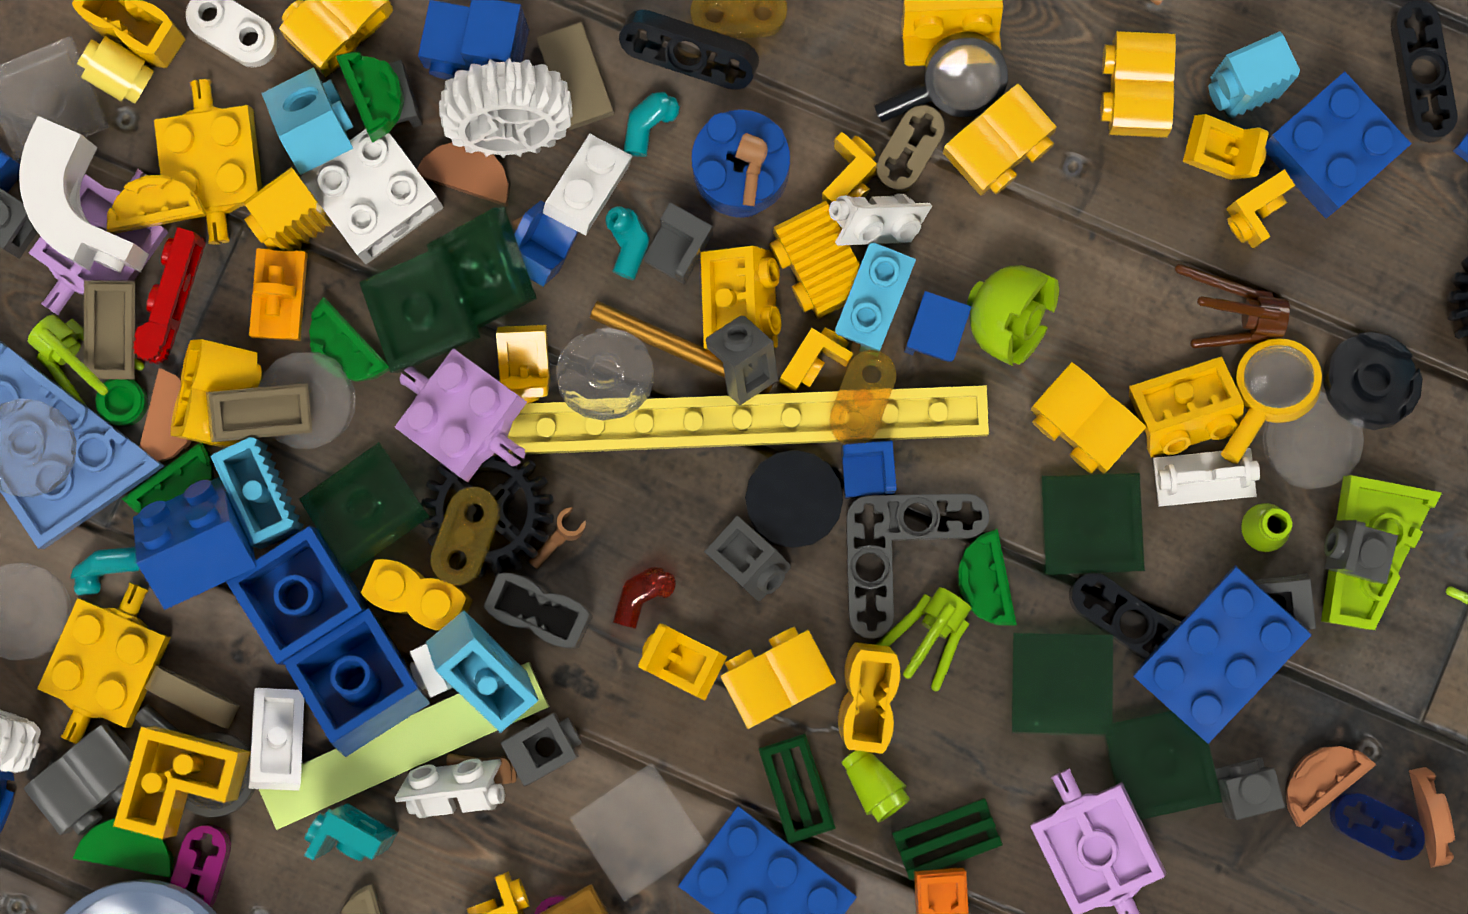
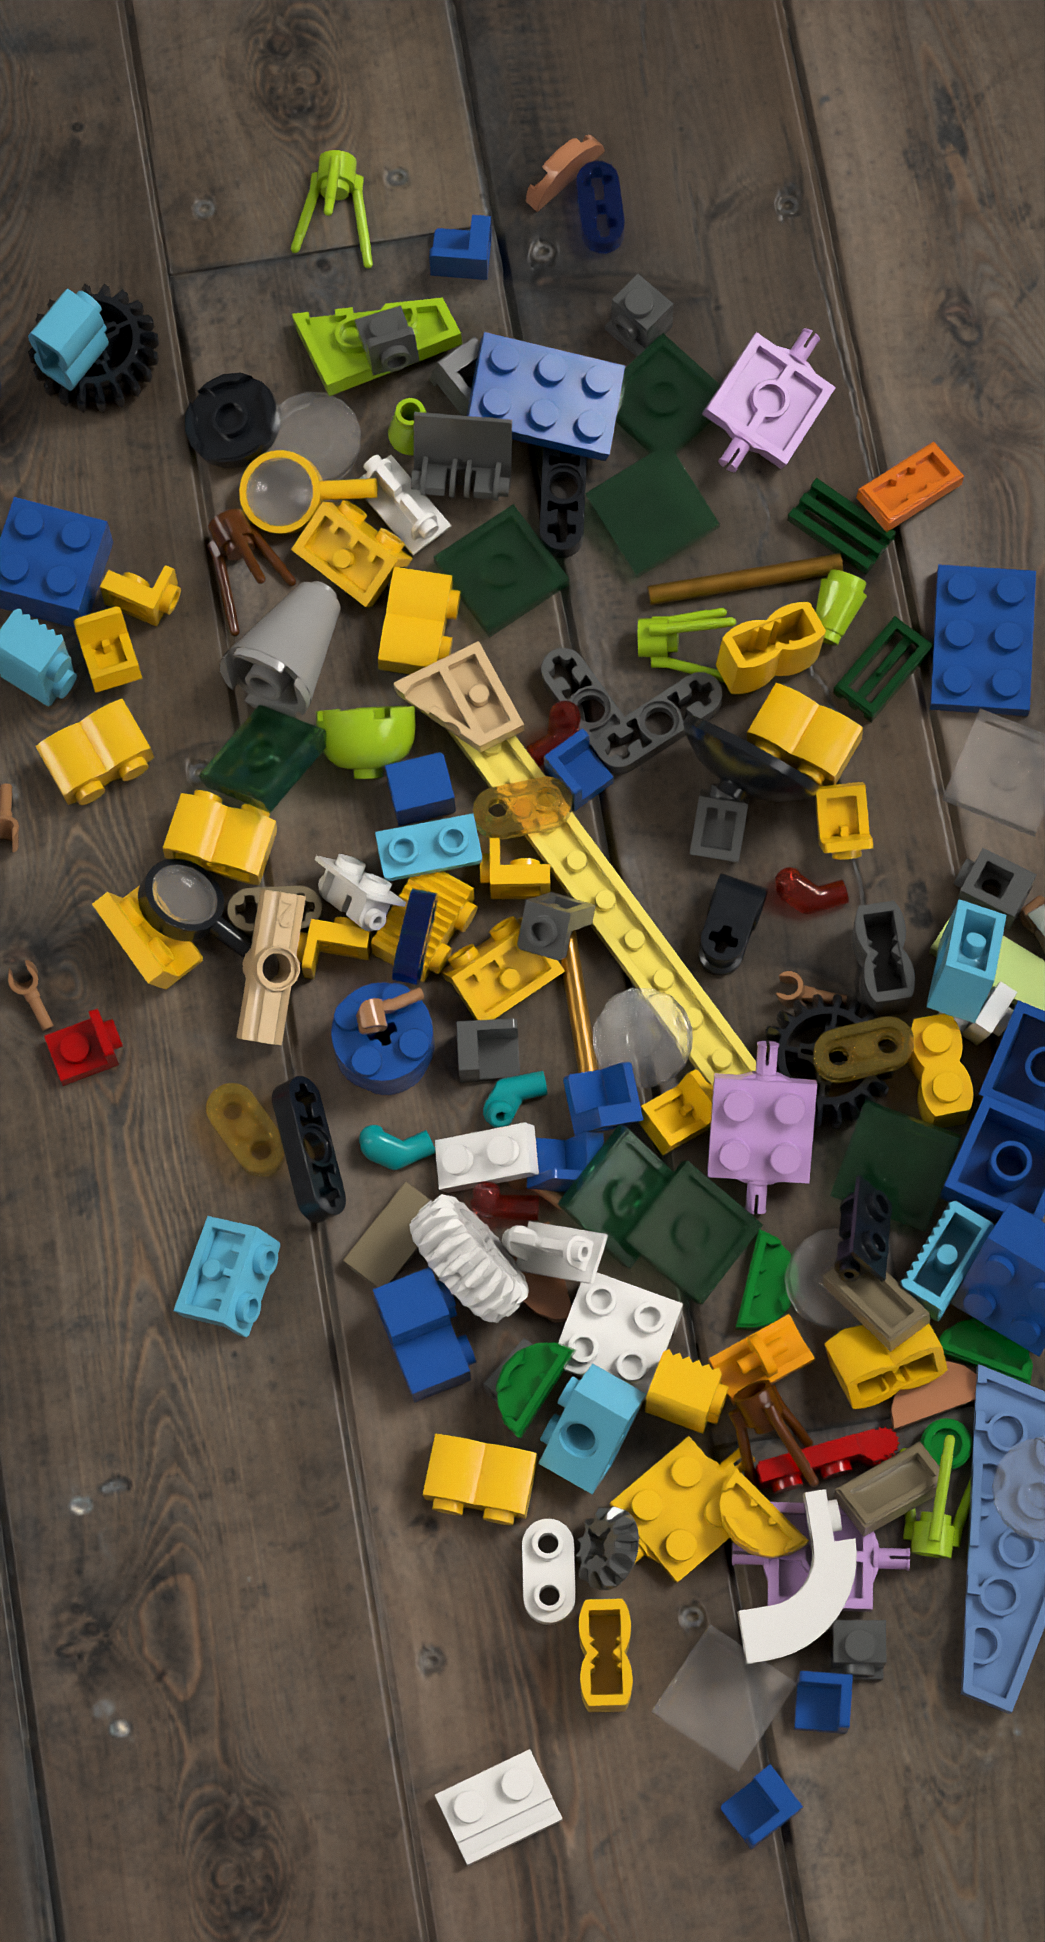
camera: 125 degrees left, 10 degrees down
(114, 69) = (656, 1643): light yellow brick -> none
(196, 75) = (620, 1546): none -> dark grey gear
(233, 261) = (764, 1410): none -> reddish brown plant
(326, 448) = (865, 1233): none -> black hinge
(468, 183) = (556, 1251): none -> white hinge
(546, 168) = (493, 1205): none -> clear red arm
(571, 304) = (603, 1098): none -> blue panel
(662, 517) = (730, 918): none -> black piece
(773, 603) = (744, 766): none -> black dish
(794, 499) = (643, 820): black tile -> none
(801, 231) = (415, 936): none -> clear blue beam
(878, 125) = (274, 933): none -> tan piece
(910, 476) = (562, 724): none -> clear red arm
(951, 725) = (744, 579): none -> pearl gold bar
(985, 581) = (607, 625): green tile -> none
(989, 410) = (464, 698): none -> tan wing
(1043, 214) = (264, 758): none -> clear green tile
(1131, 294) = (285, 650): none -> light grey cone
(1215, 551) = (462, 453): none -> dark grey hinge
(1322, 778) = (590, 271): nougat tile -> none
(1410, 678) = (462, 251): none -> blue panel

